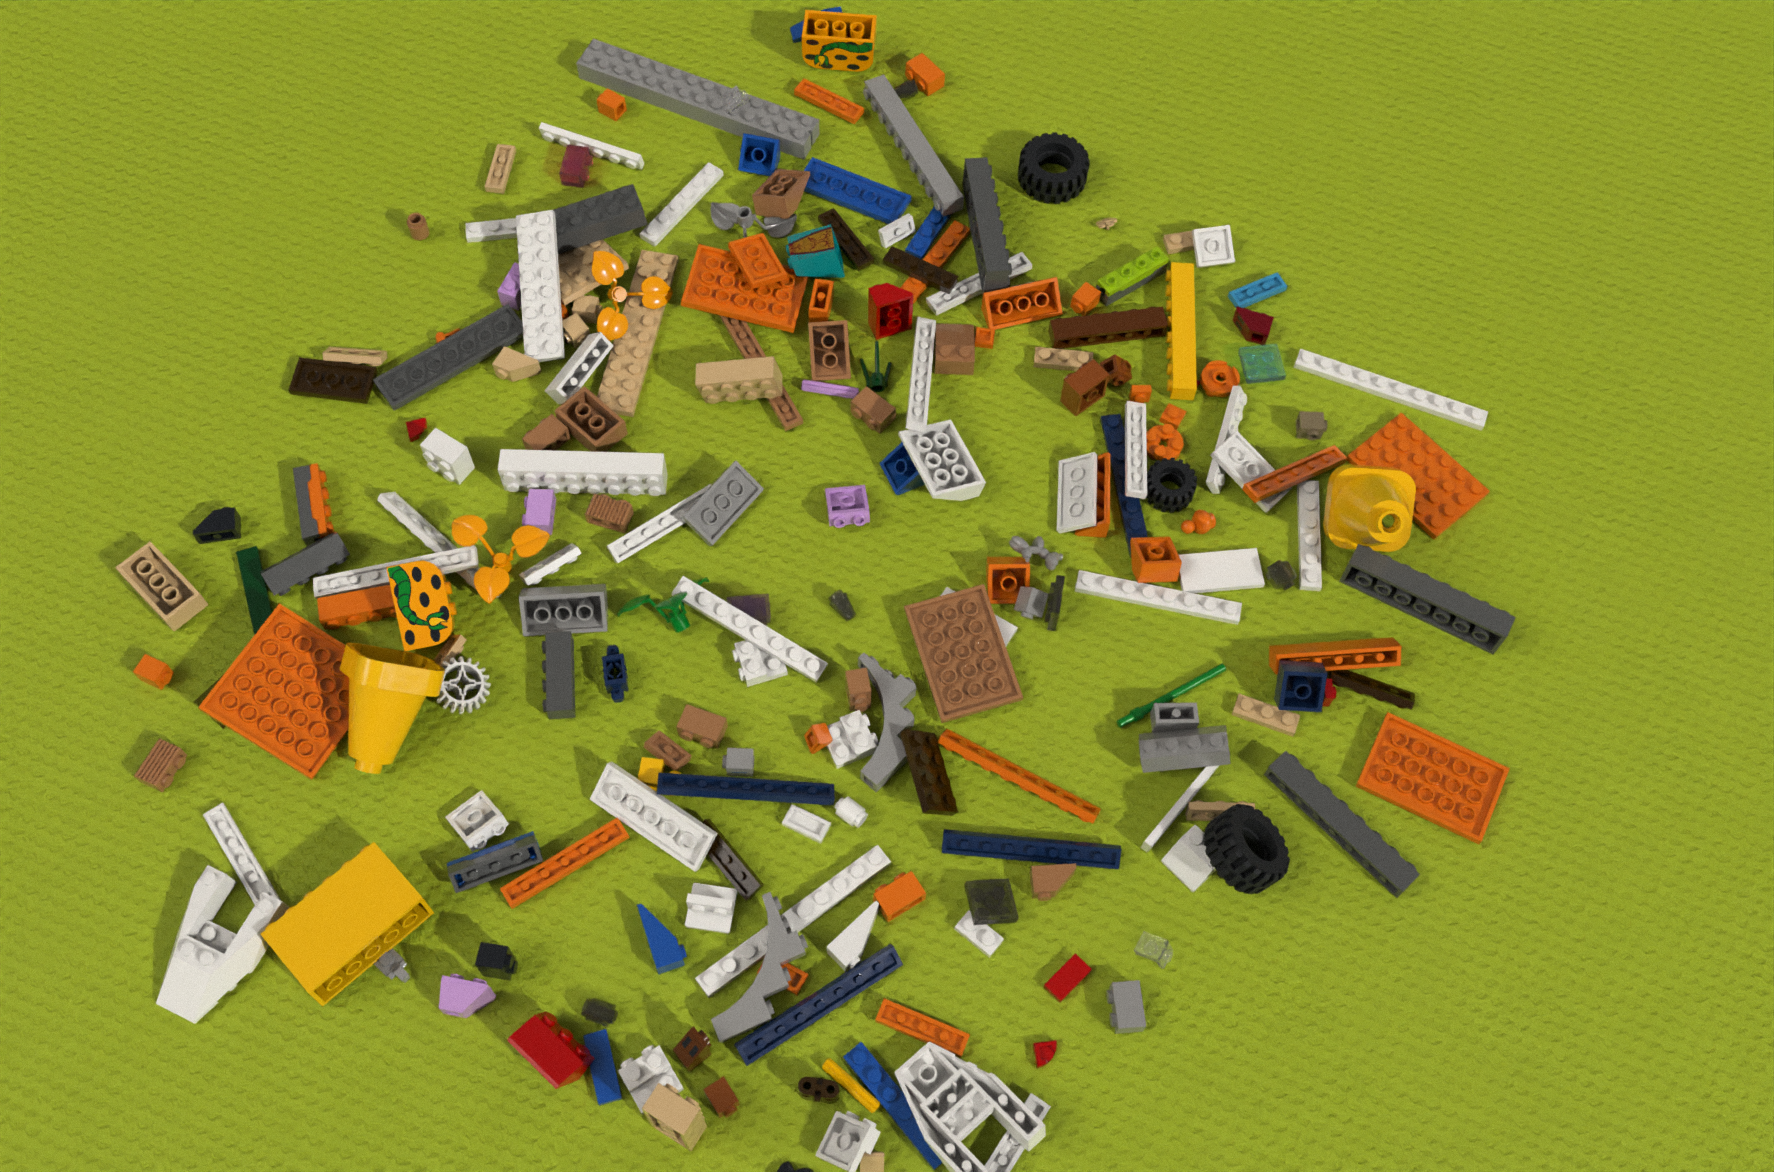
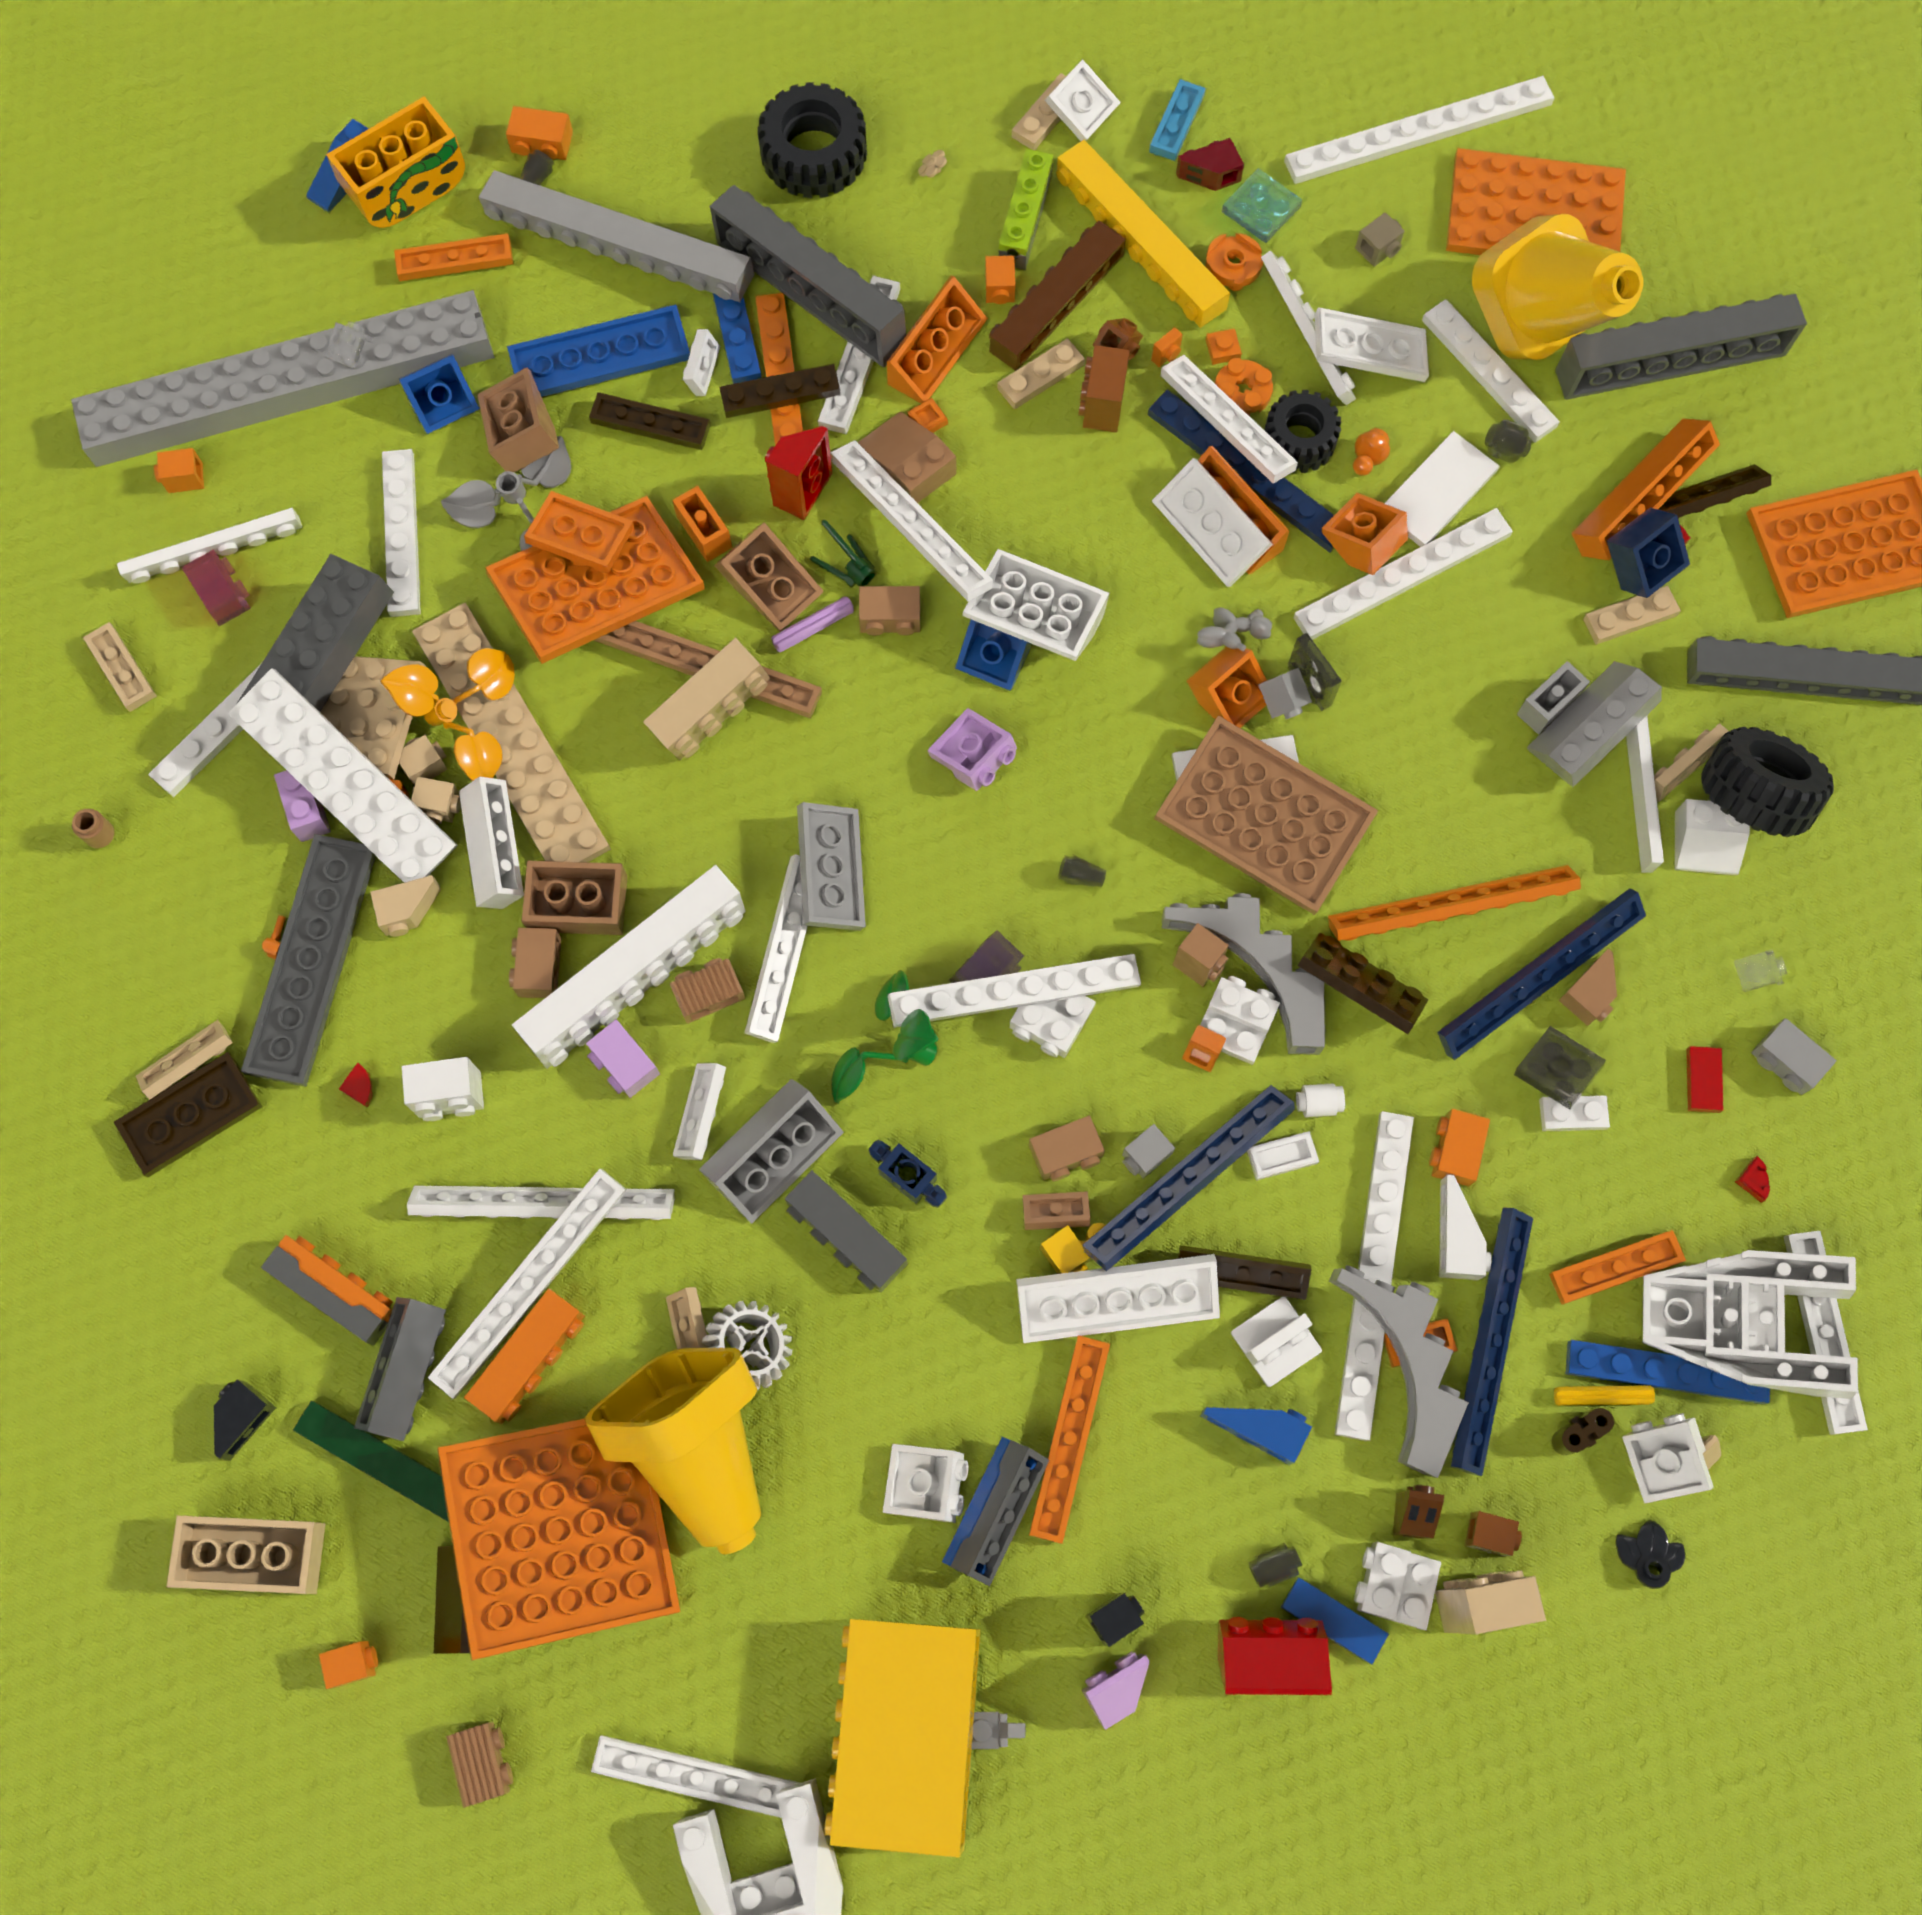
camera: 40 degrees left, 10 degrees up
(422, 604) = (611, 1293): light orange brick -> none
(493, 582) = (663, 1195): light orange plant -> none
(815, 253) = (638, 467): teal slope -> none
(1138, 713) = (1506, 725): green bar -> none
(1294, 473) = (1420, 311): orange plate -> none

